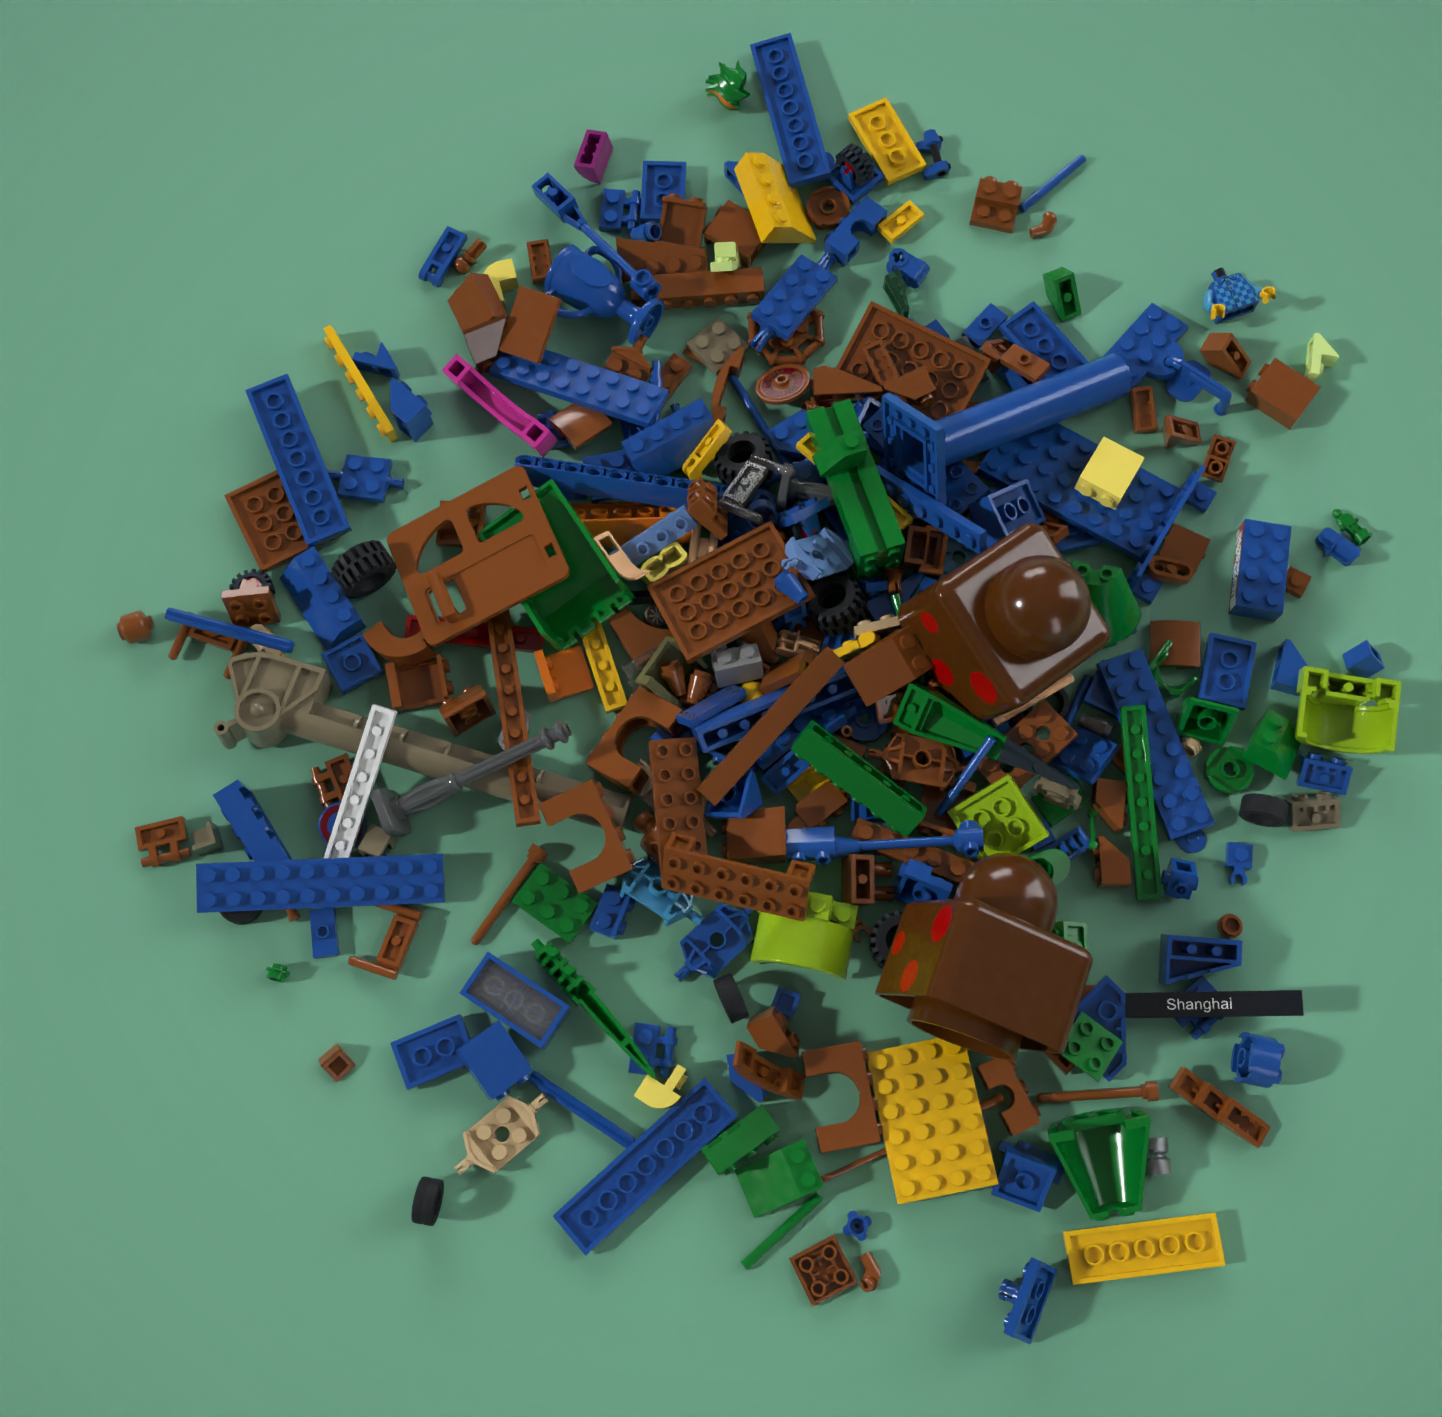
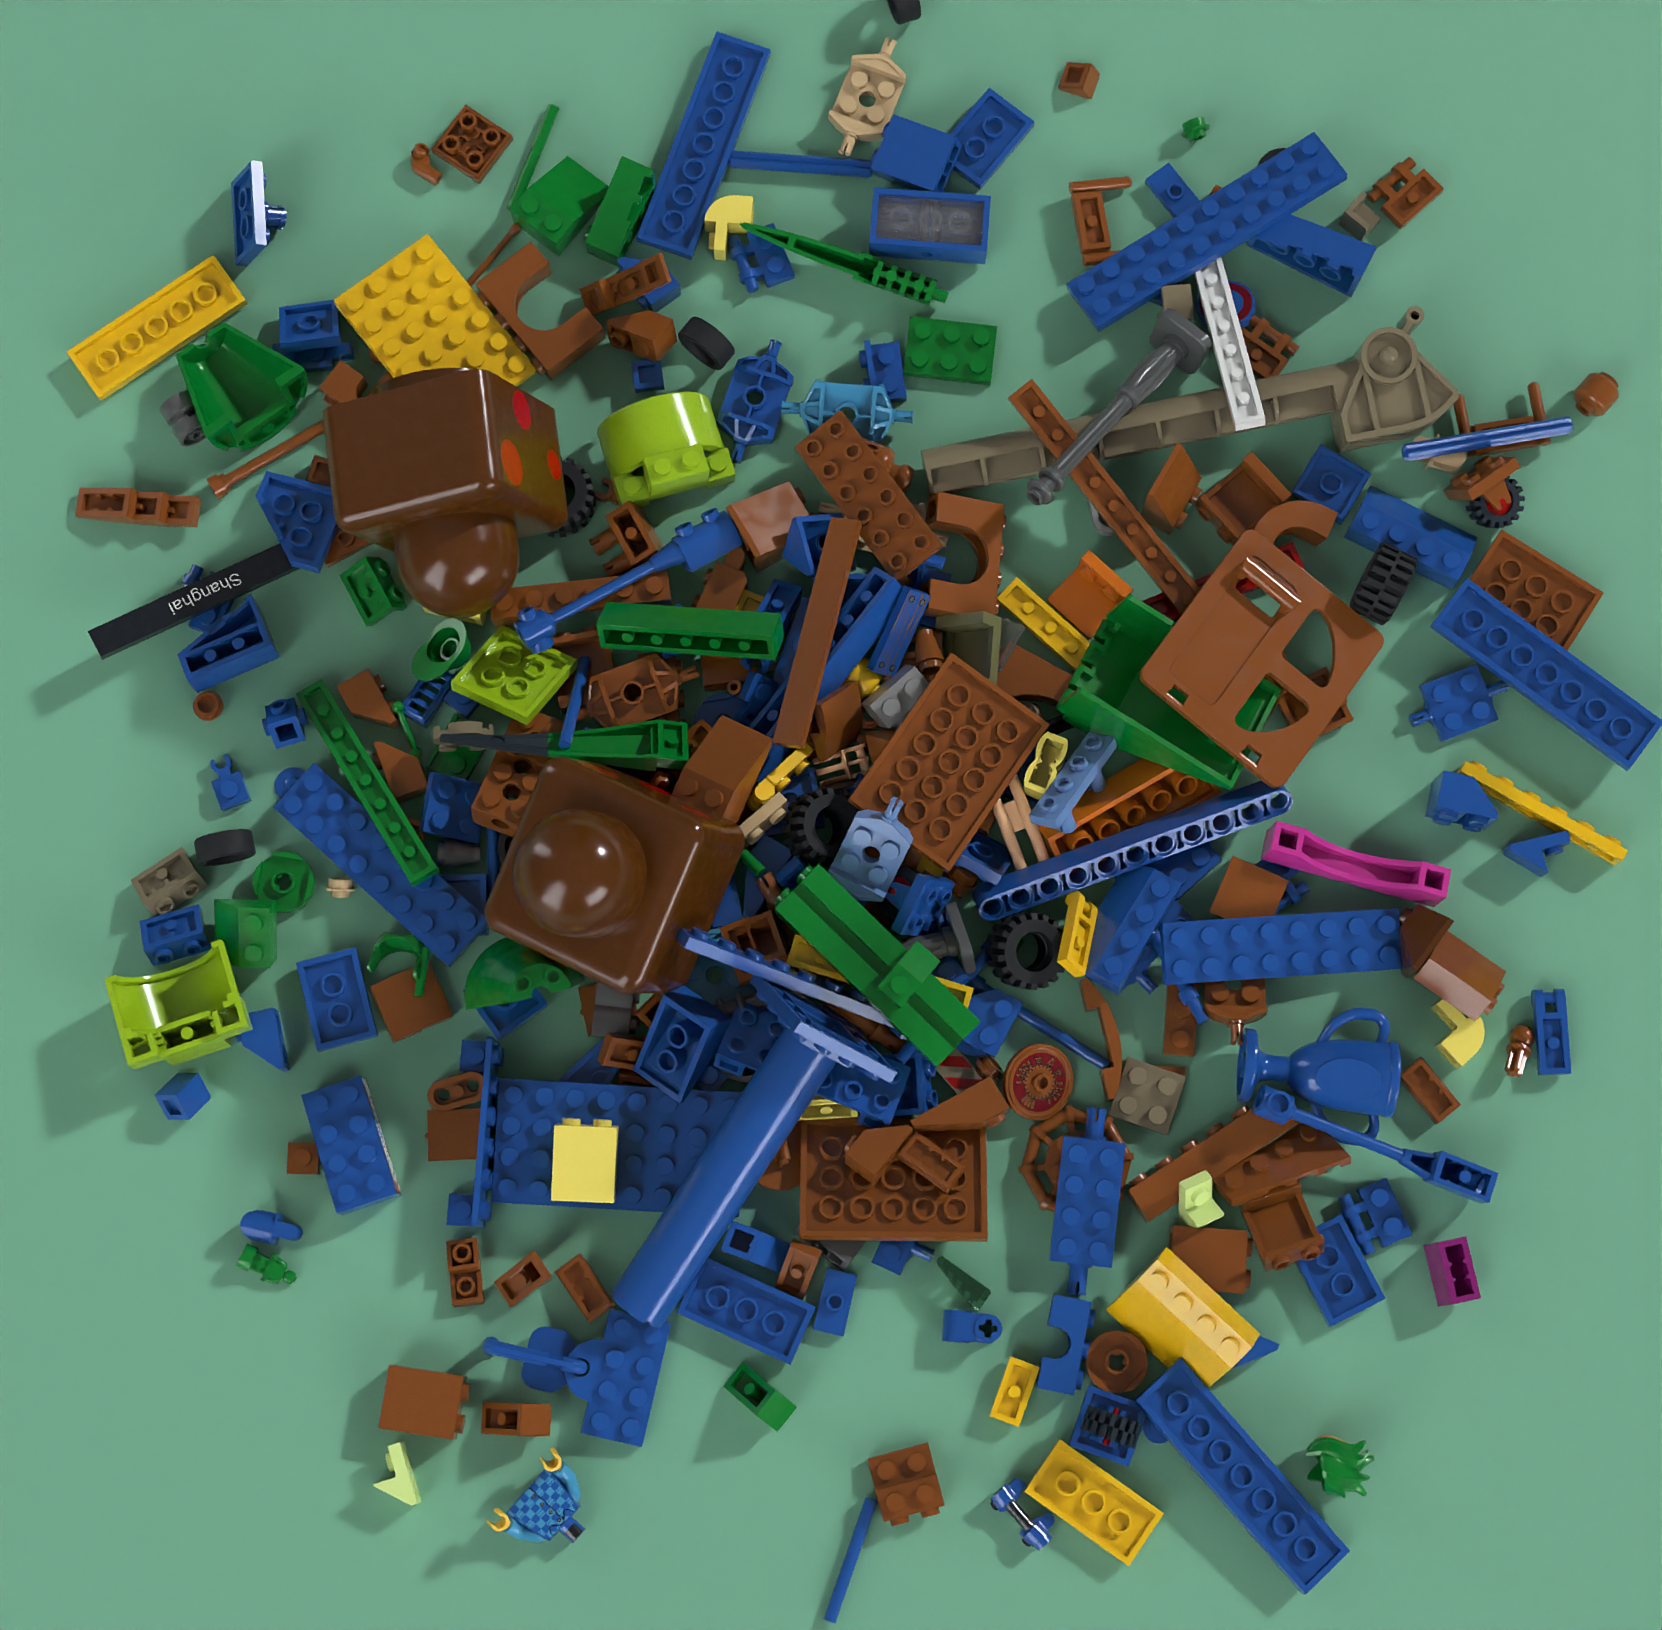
camera: 150 degrees right, 5 degrees up
(530, 324) = (1381, 979): dark orange tile -> none
(535, 855) = (1000, 387): dark orange piece -> none
(588, 800) = (969, 449): dark orange arch -> none
(619, 560) = (1092, 730): light nougat piece -> none
(647, 232) = (1319, 1194): blue cone -> none
(674, 676) = (961, 646): dark orange cone -> none
(703, 507) = (1031, 849): dark orange plate -> none
(736, 882) = (697, 454): dark orange bracket -> none
(747, 483) = (1002, 900): clear smoke plate -> none
(763, 503) = (969, 885): dark blue wheel -> none
(790, 586) = (877, 788): blue cone -> none
(864, 1222) = (463, 193): blue plate -> none
(917, 884) = (573, 561): blue plate -> none
(1025, 363) = (755, 1252): dark orange plate -> none
(1046, 226) = (826, 1488): dark orange arm -> none
(1091, 1046) = (301, 487): green hinge -> none
(1205, 720) = (336, 919): green slope -> none
(1257, 1060) = (118, 568): blue brick -> none

